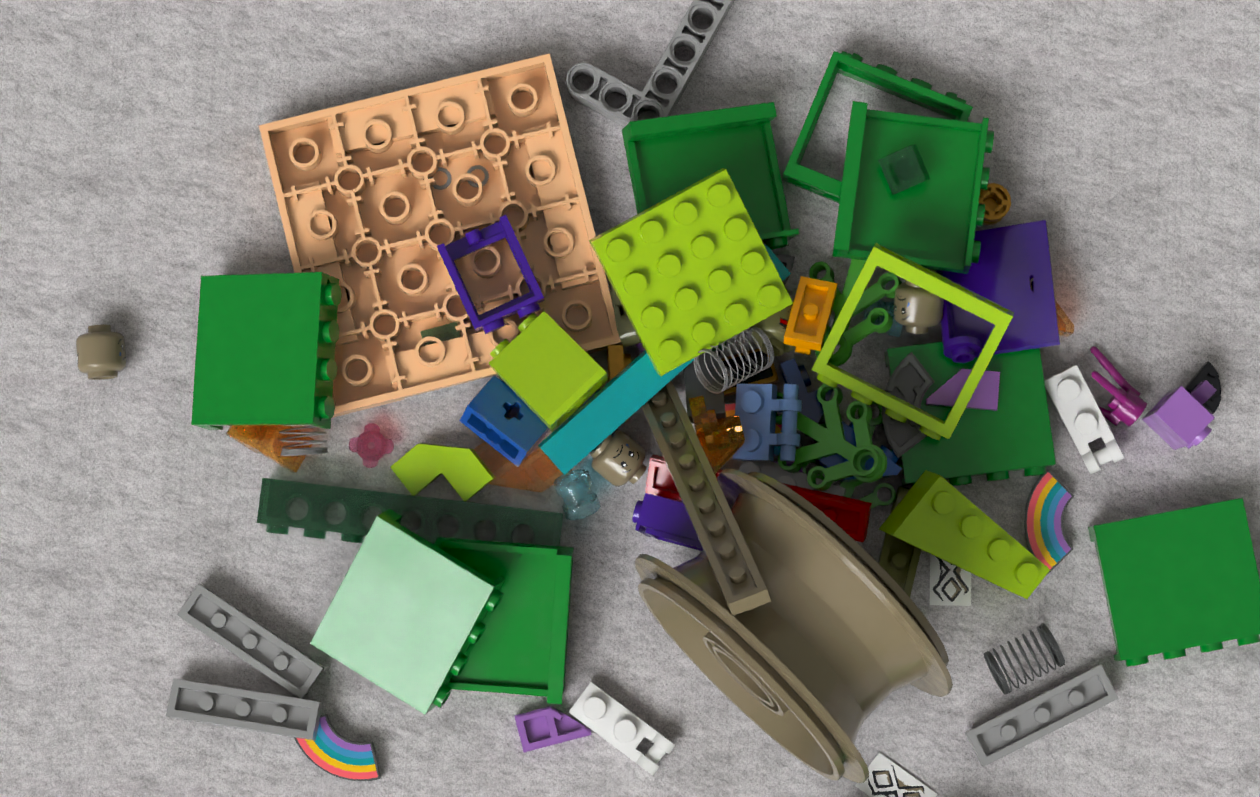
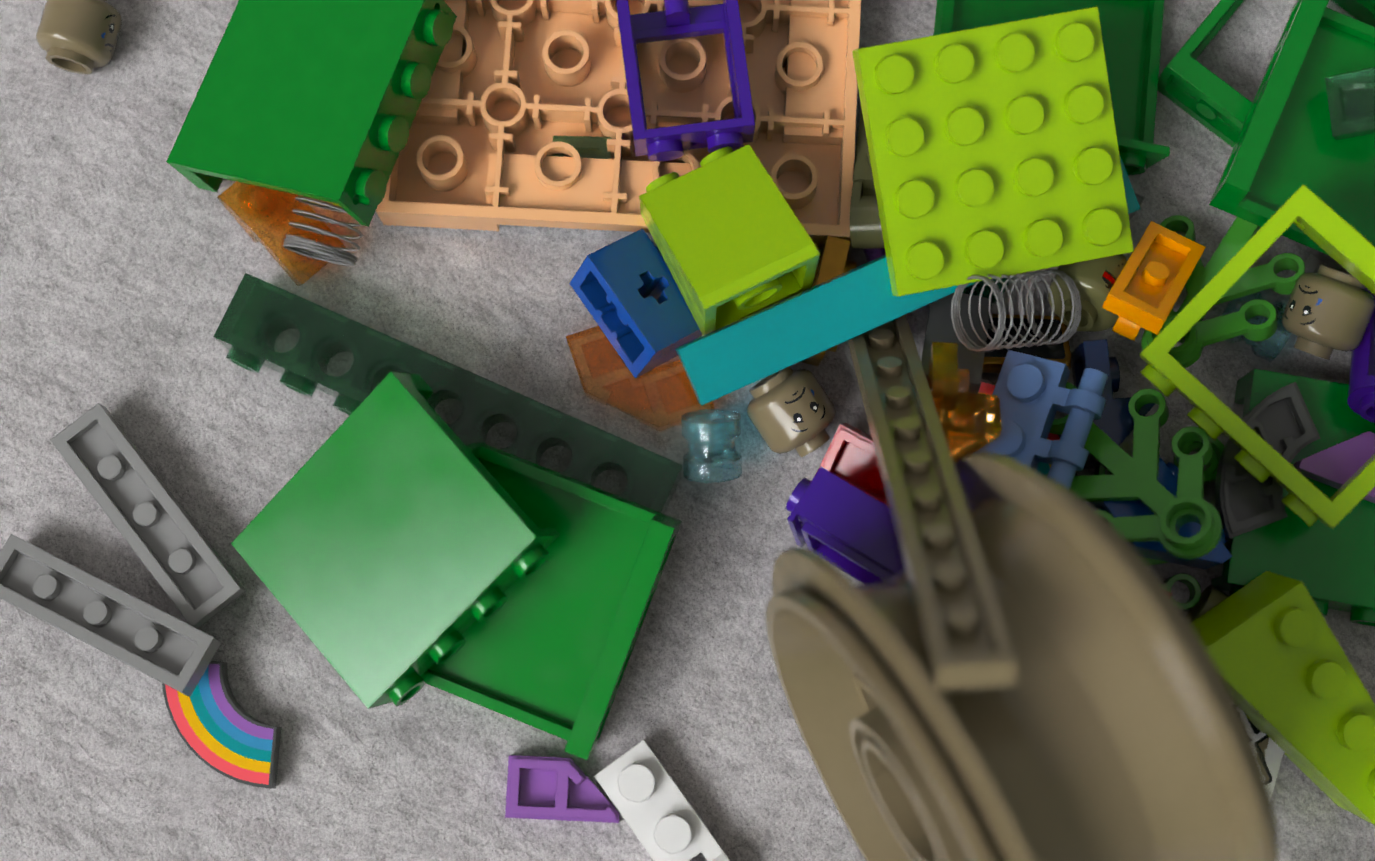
camera: 15 degrees right, 5 degrees down
(371, 456) = (422, 297): clear pink plate -> none
(458, 465) = (546, 347): lime tile -> none

